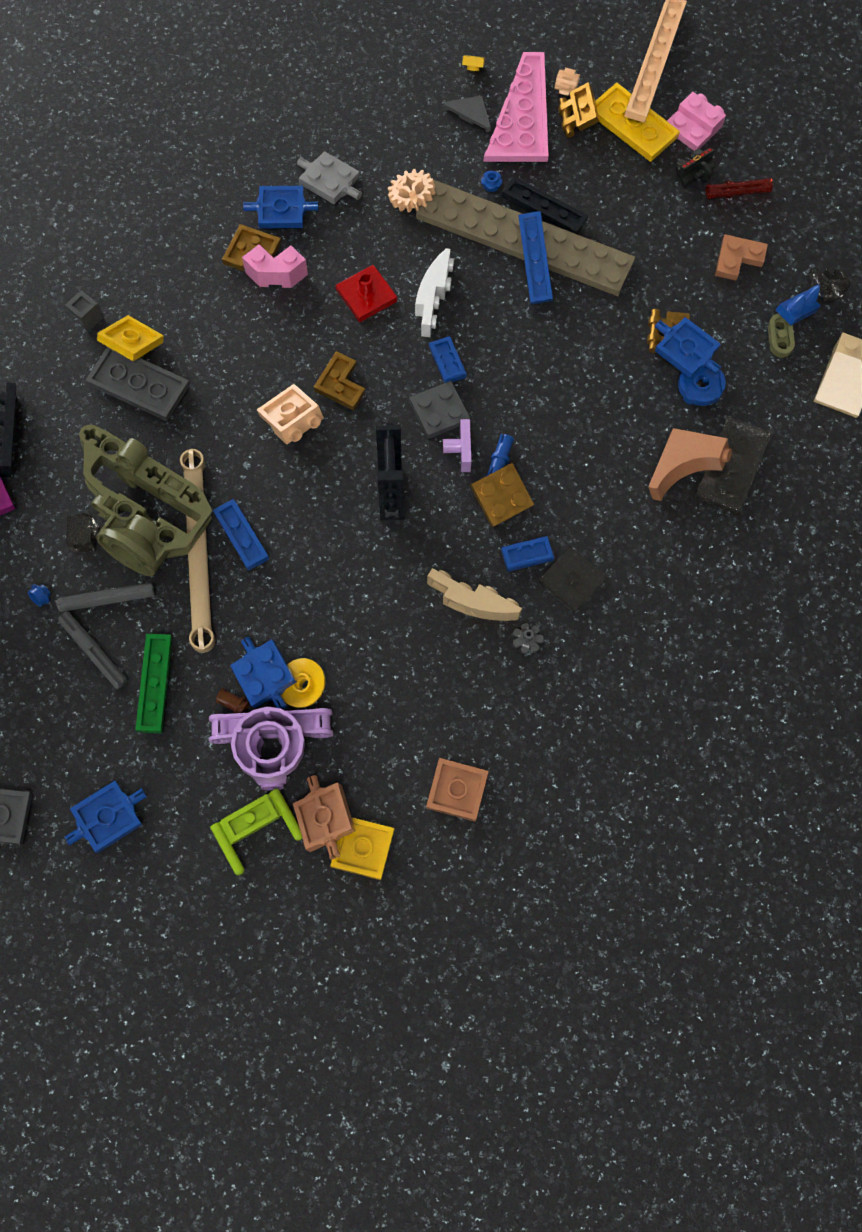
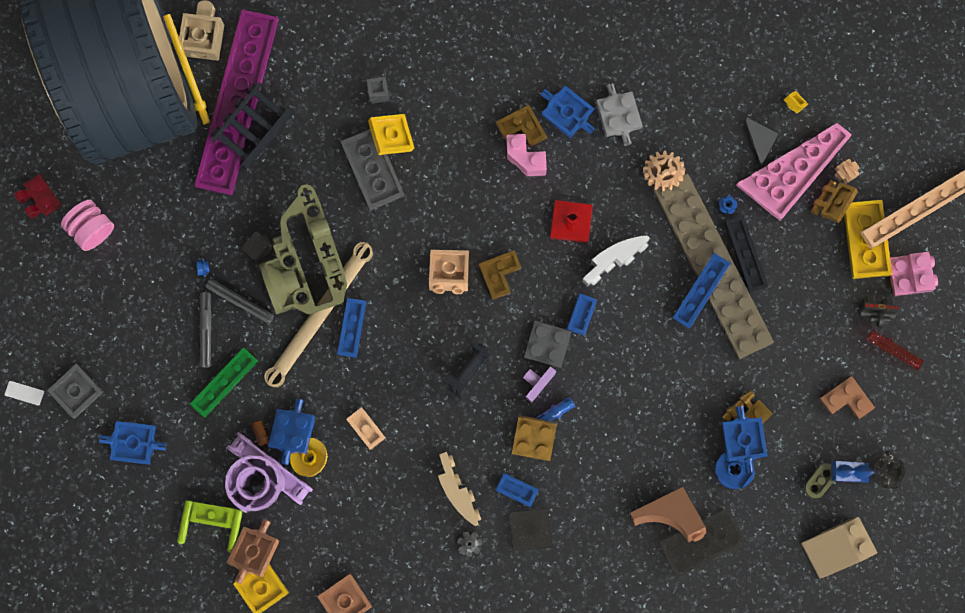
camera: 45 degrees right, 10 degrees up
(334, 613) = (366, 428): none -> light nougat plate

